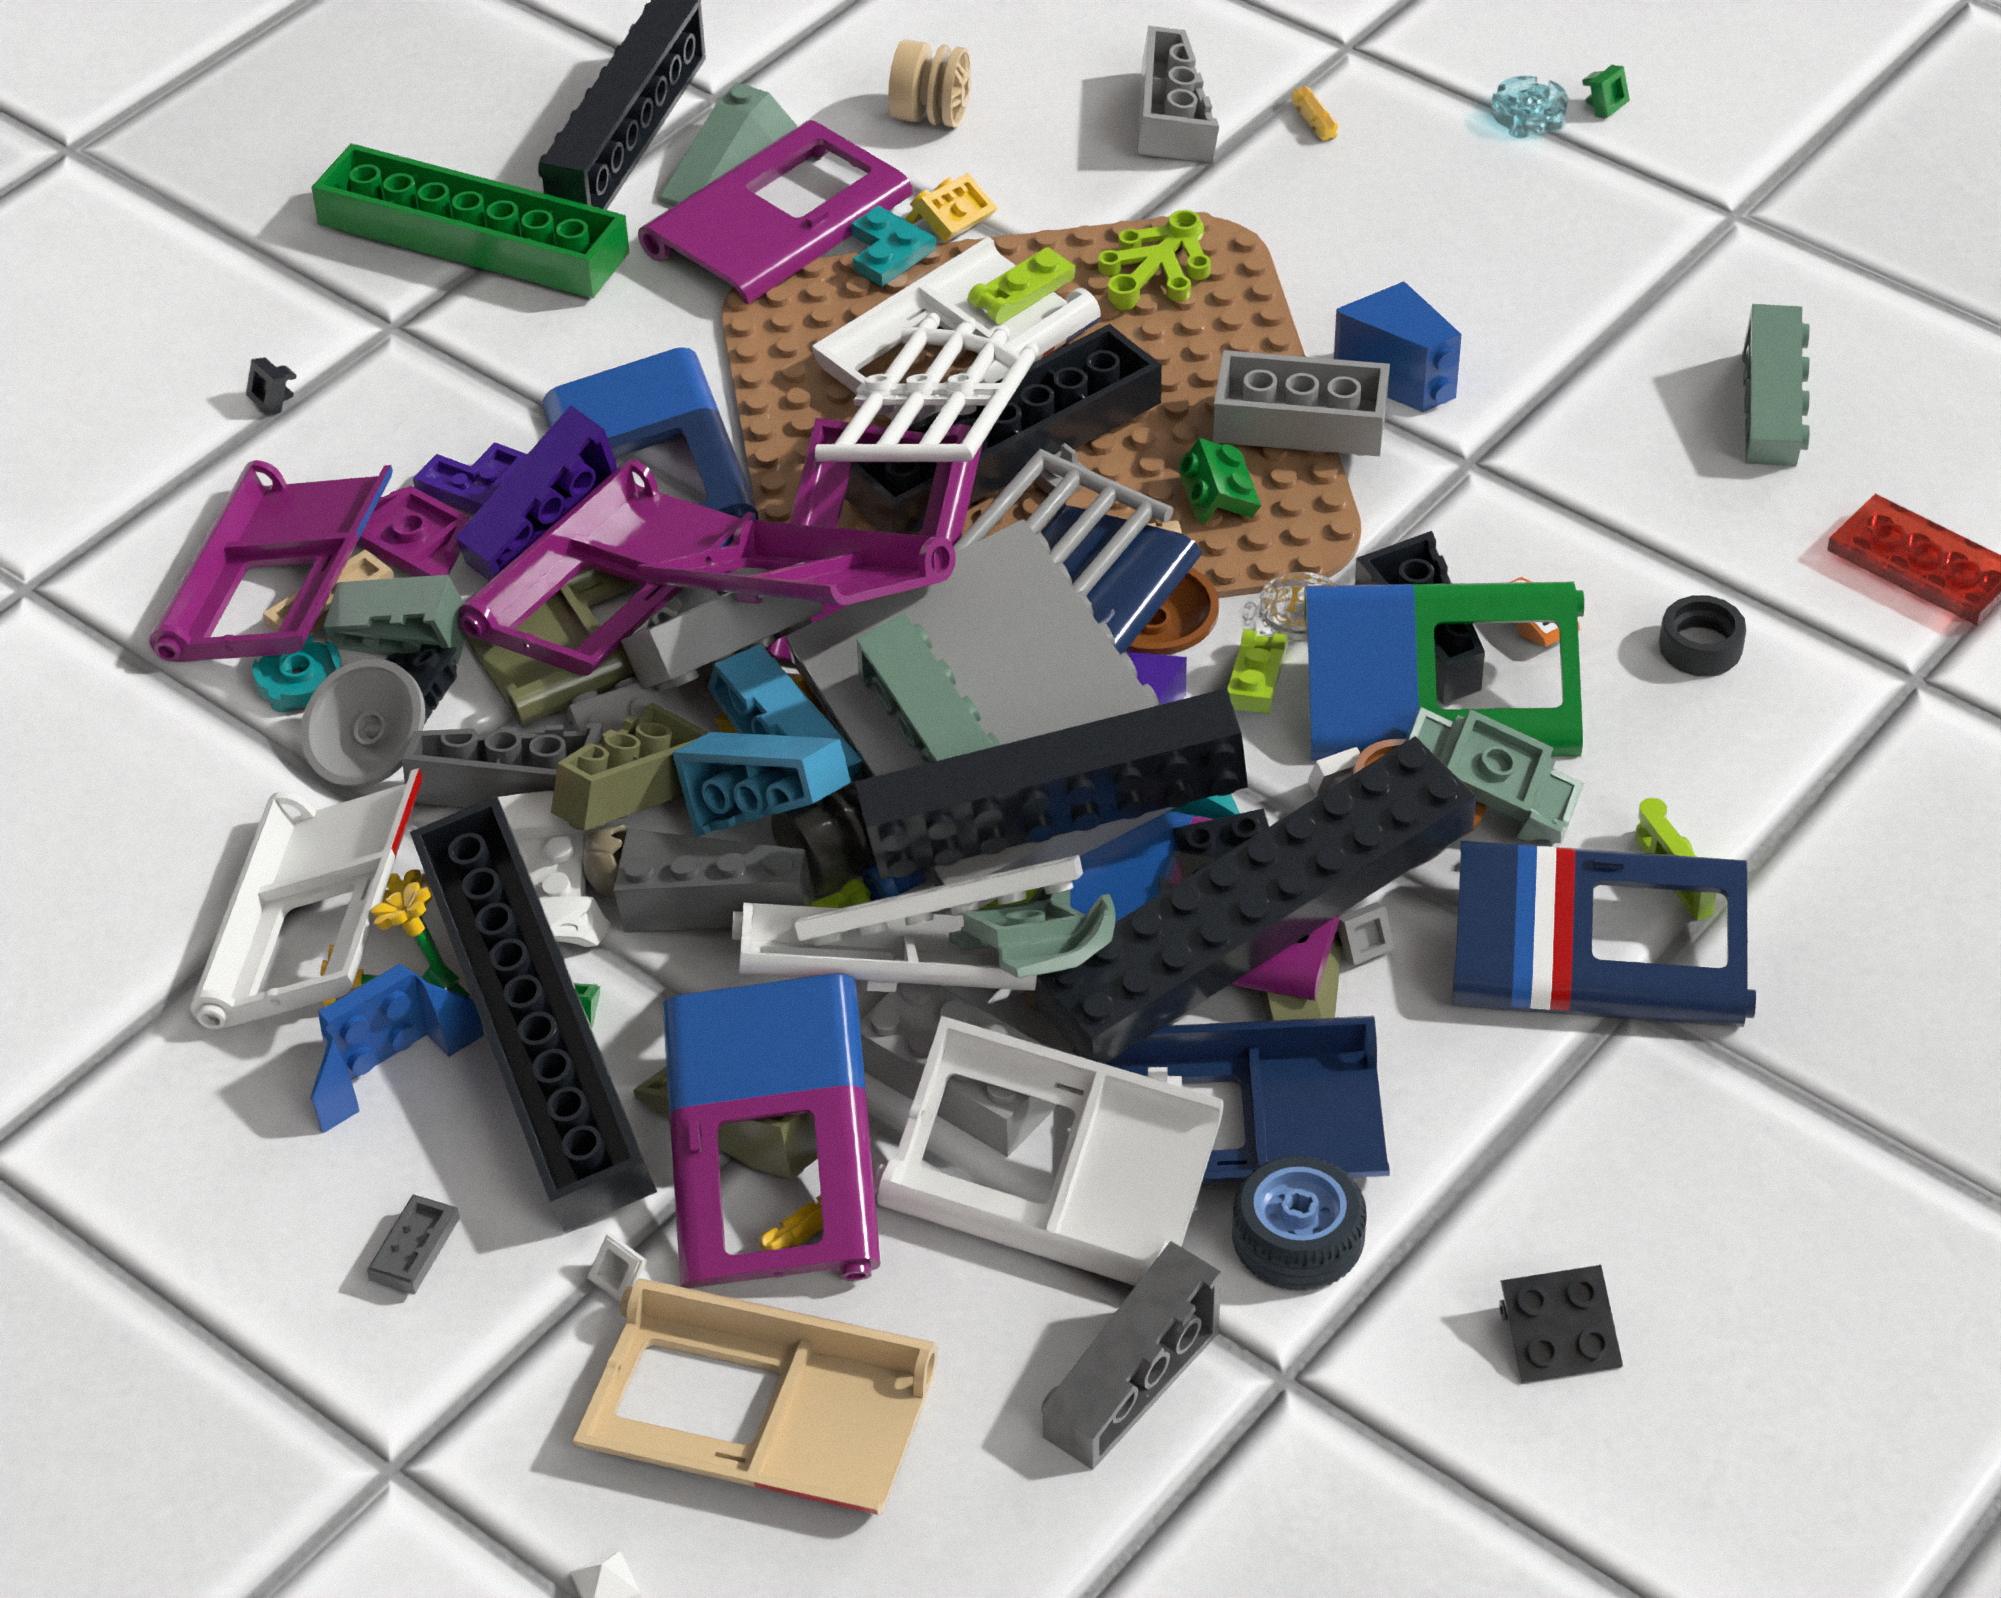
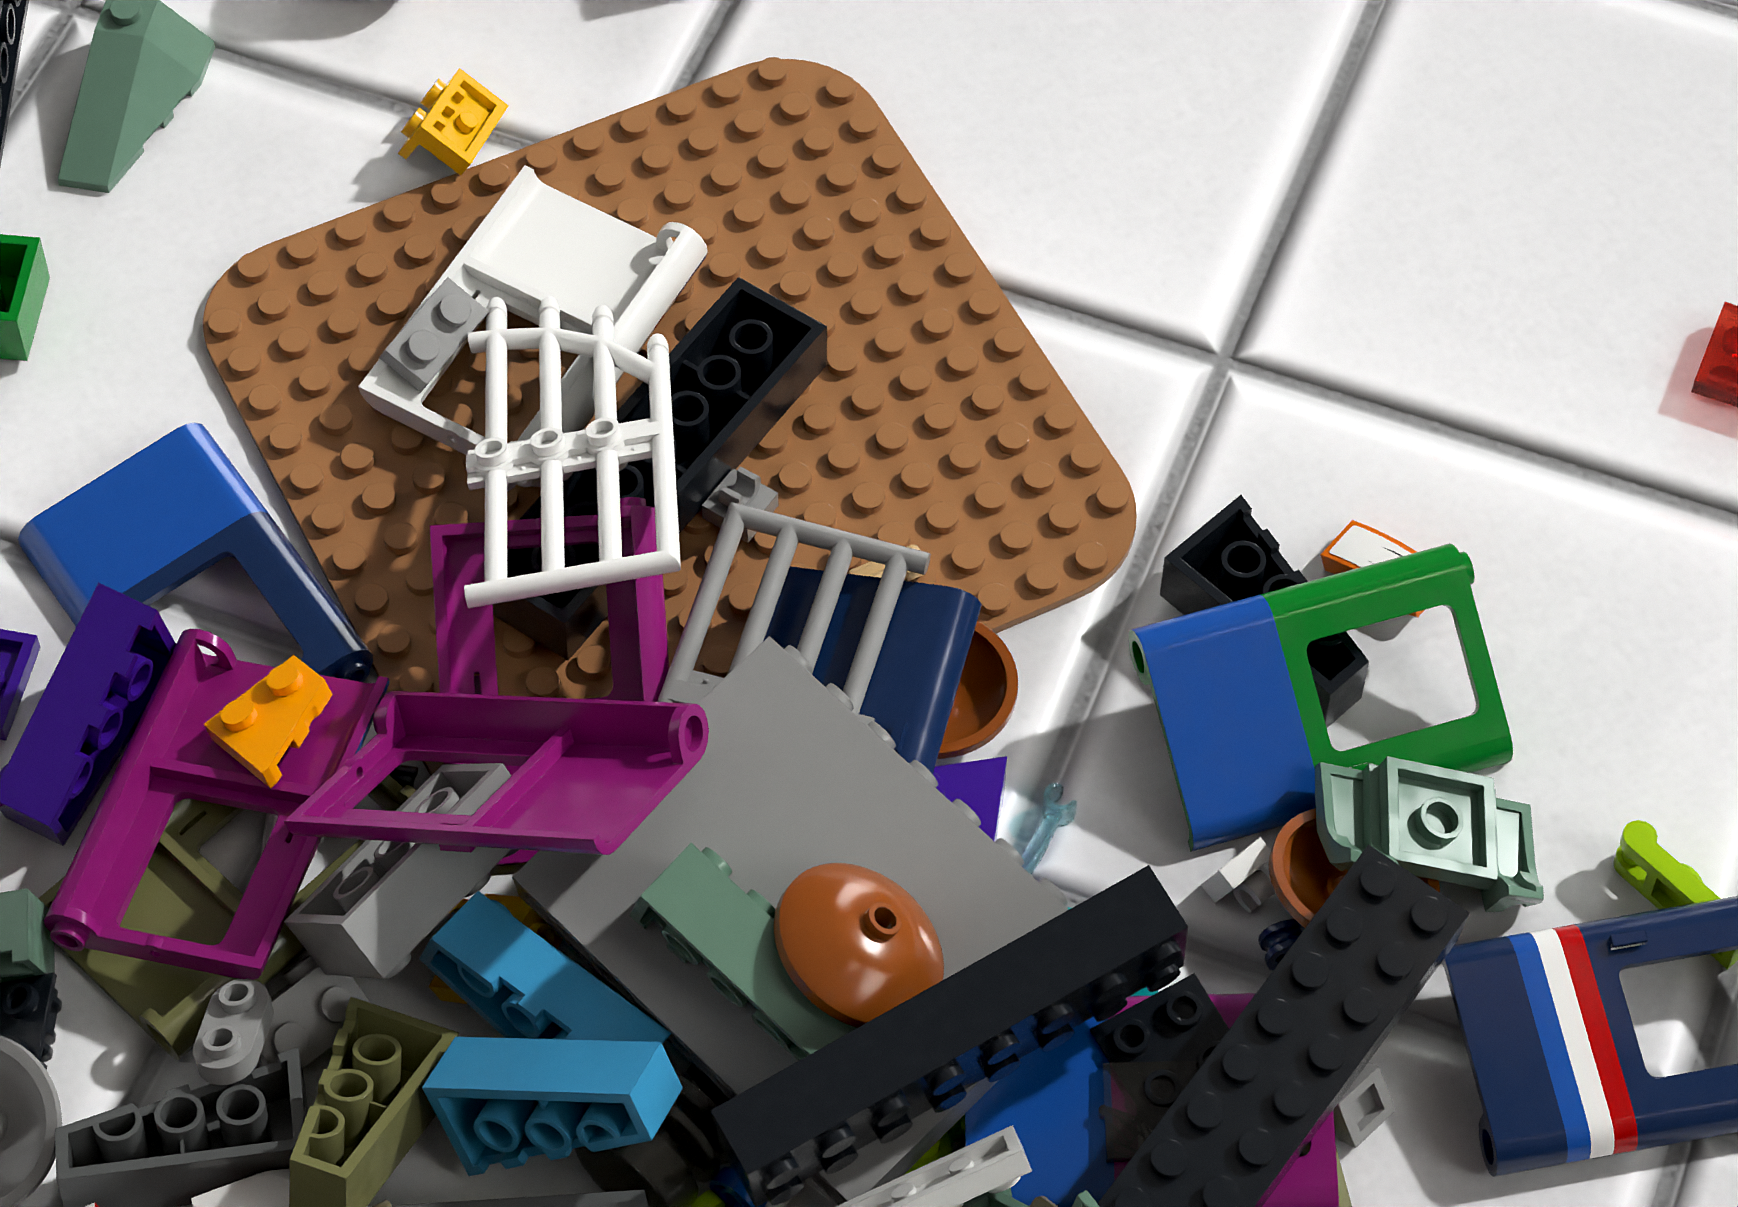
camera: 20 degrees left, 10 degrees up
(560, 701) = (233, 1031): none -> light grey plate
(672, 518) = (270, 718): none -> light orange wing
(754, 241) = (202, 226): magenta piece -> none
(877, 324) = (434, 334): none -> light grey plate
(892, 243) = (403, 197): teal plate -> none
(1001, 702) = (855, 942): none -> dark orange dish
(1022, 285) = (593, 228): lime plate -> none
(1181, 229) = (758, 96): lime plant -> none
(1216, 478) = (941, 471): green bracket -> none
(1257, 671) = (1087, 745): lime plate -> none
(1283, 603) = (1093, 623): clear tile -> none
(1301, 403) = (1010, 334): light grey brick -> none
(1407, 334) = (1097, 221): blue slope -> none
(1697, 657) = (1602, 522): black tyre -> none
(1774, 385) = (1558, 173): sand green wedge -> none

